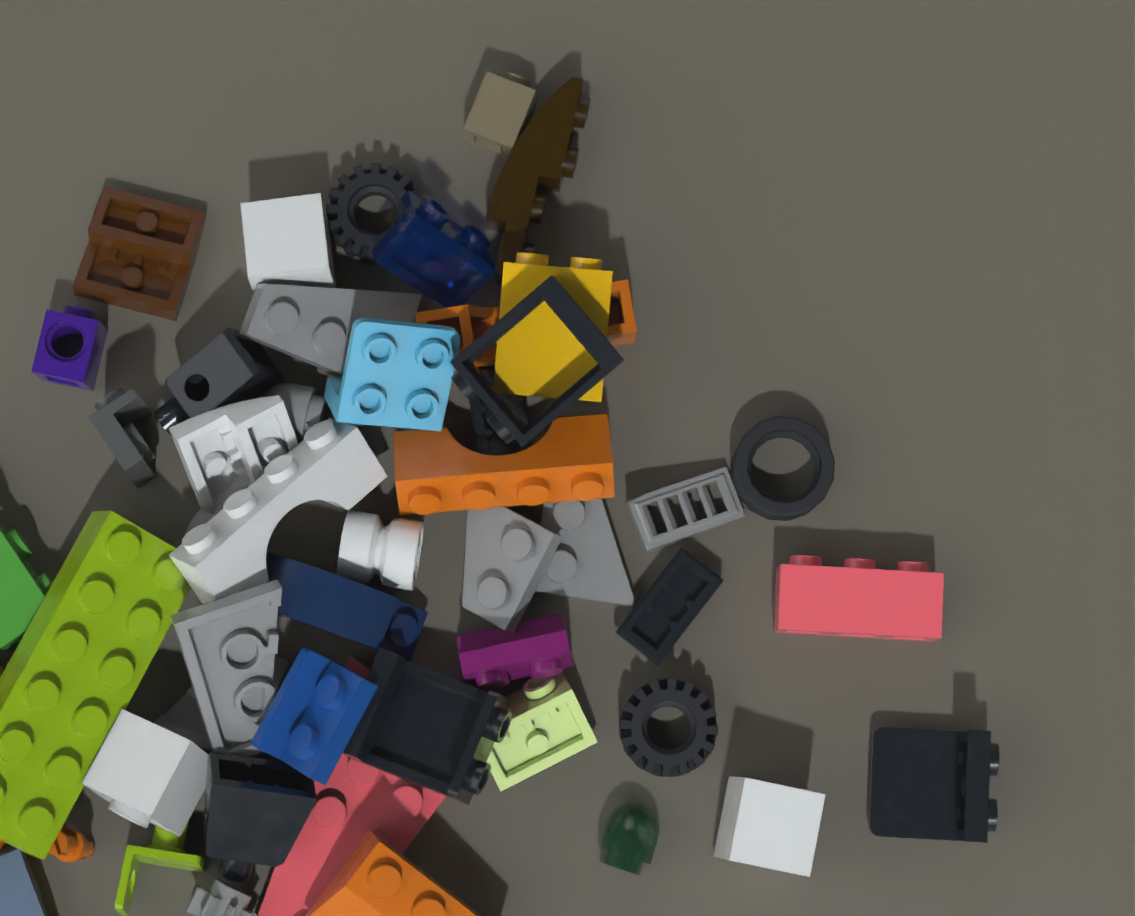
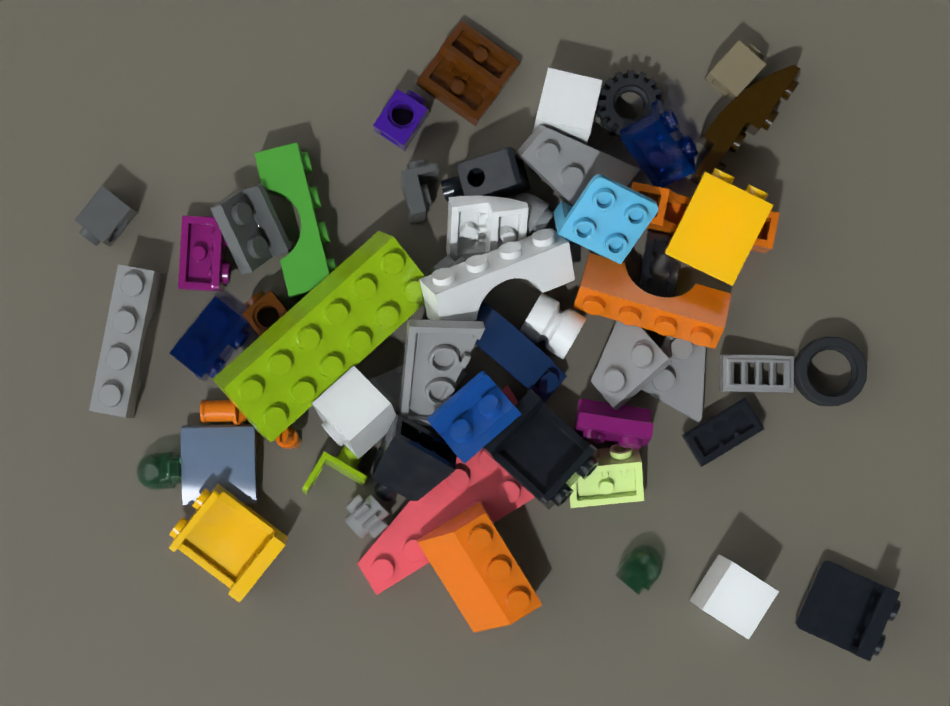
camera: 25 degrees right, 5 degrees up
(474, 383) = (740, 235): black window -> none
(701, 722) = (714, 514): black tyre -> none
(858, 599) = (846, 474): coral brick -> none

